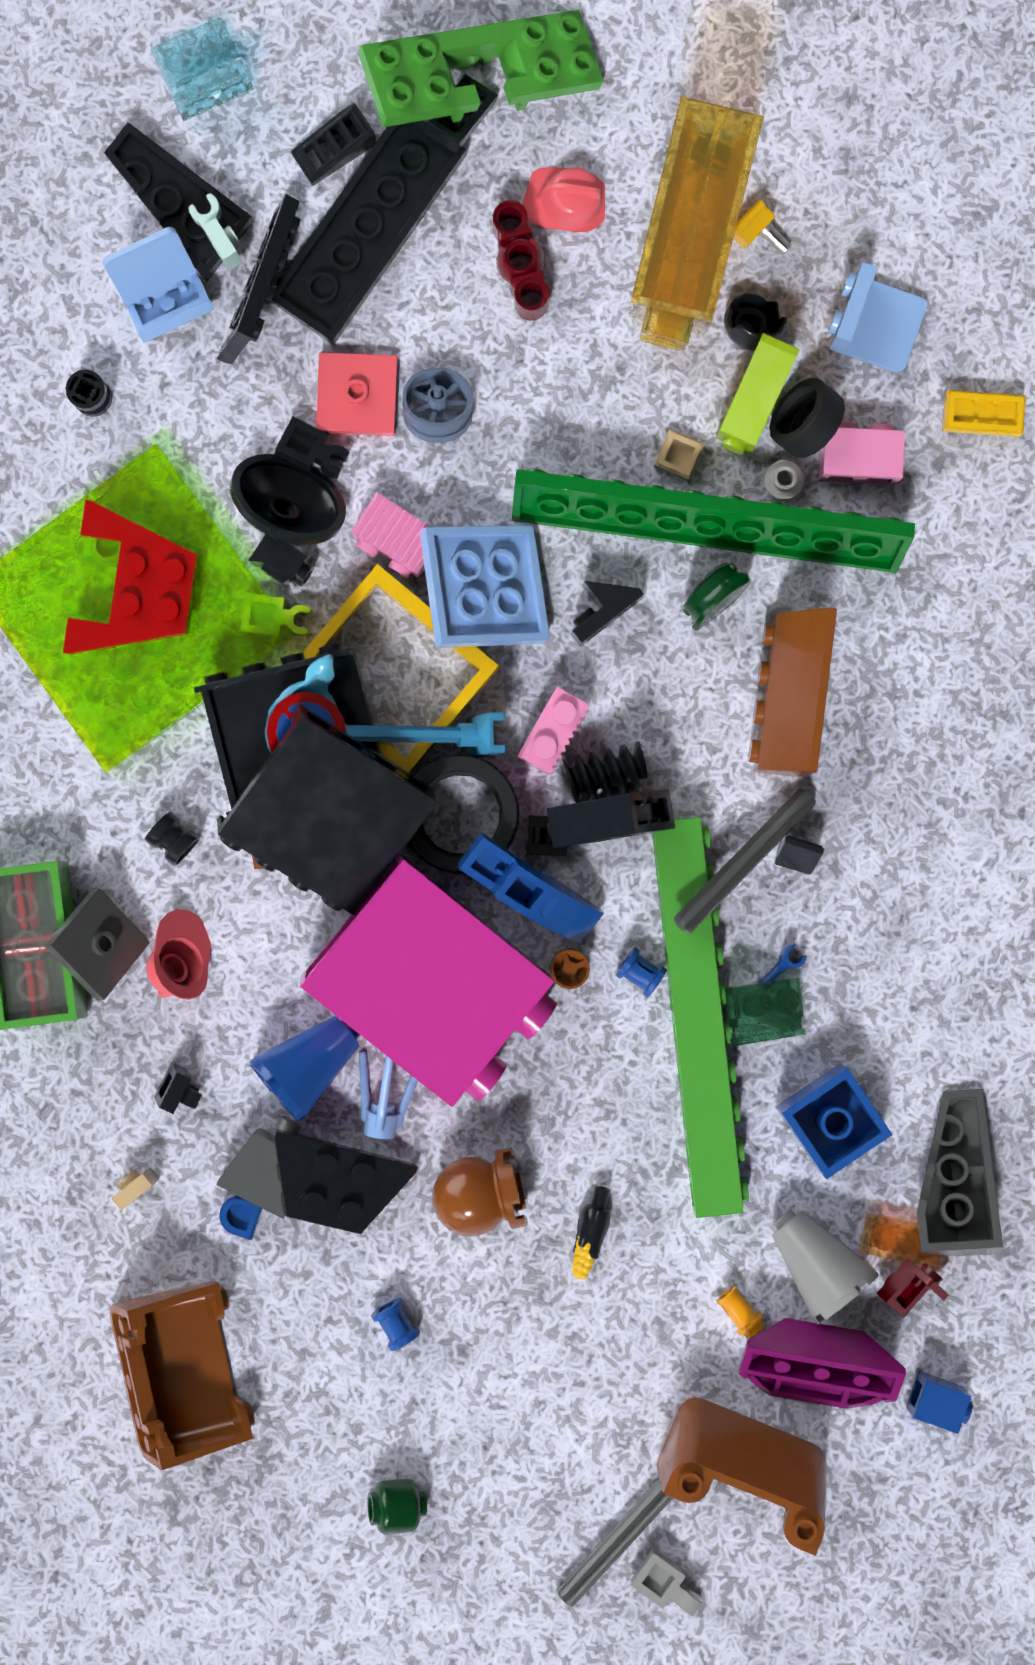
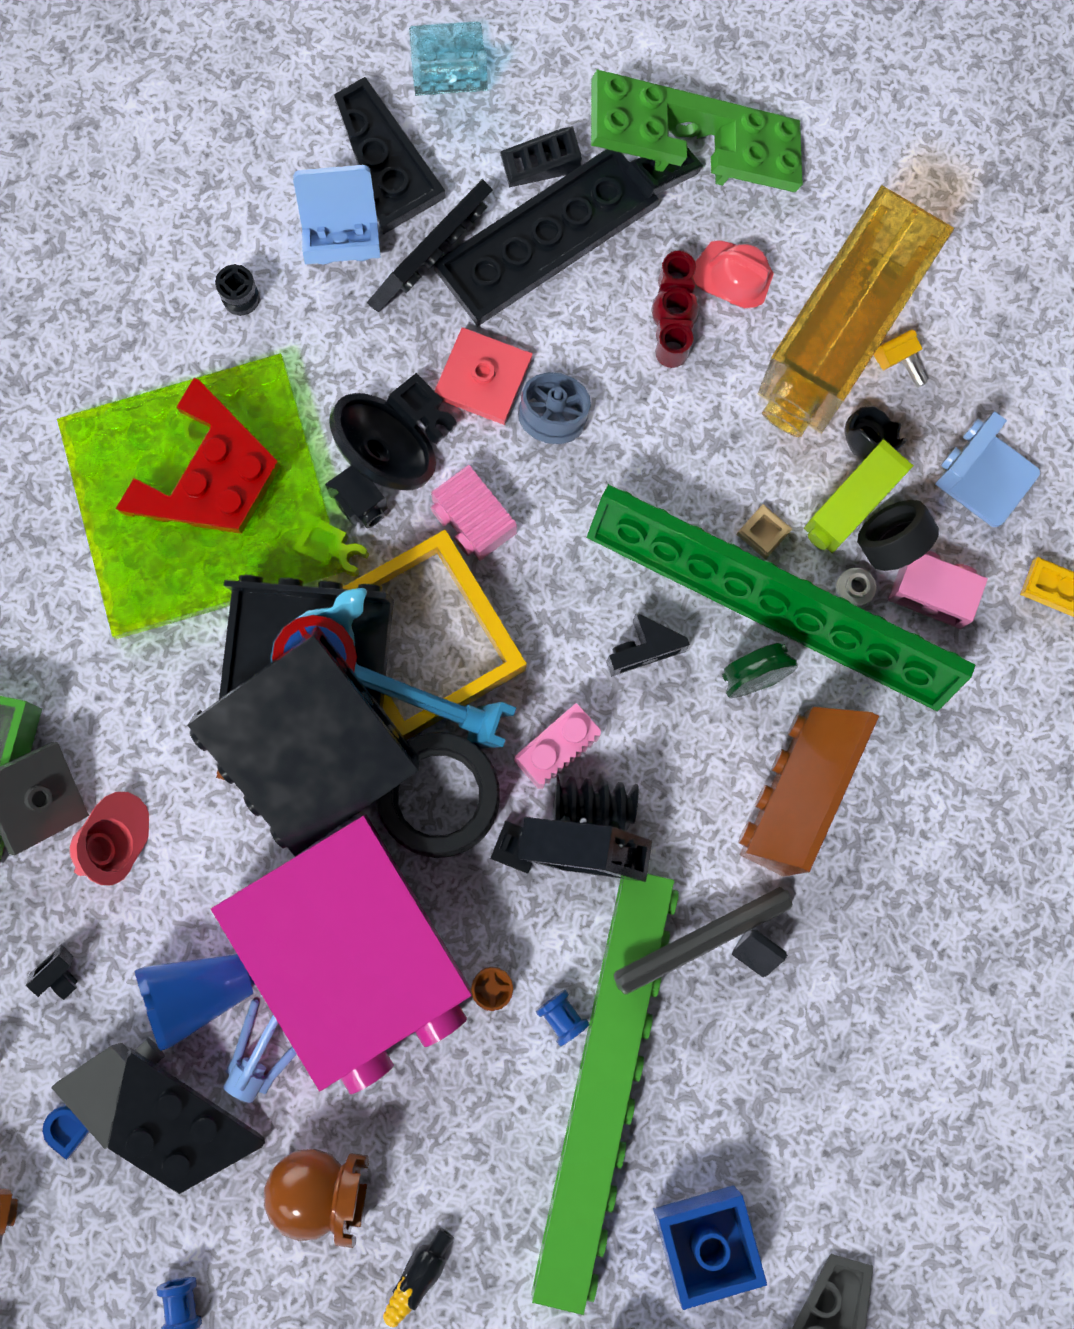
camera: 10 degrees right, 10 degrees down
(168, 835) = (149, 719): black wheel -> none
(222, 239) = (410, 198): light aqua plate -> none
(484, 586) = (539, 585): light blue plate -> none
(529, 890) = (479, 894): blue slope -> none
(765, 1011) = (674, 1102): clear green plate -> none
(783, 964) = (705, 1062): blue hand -> none

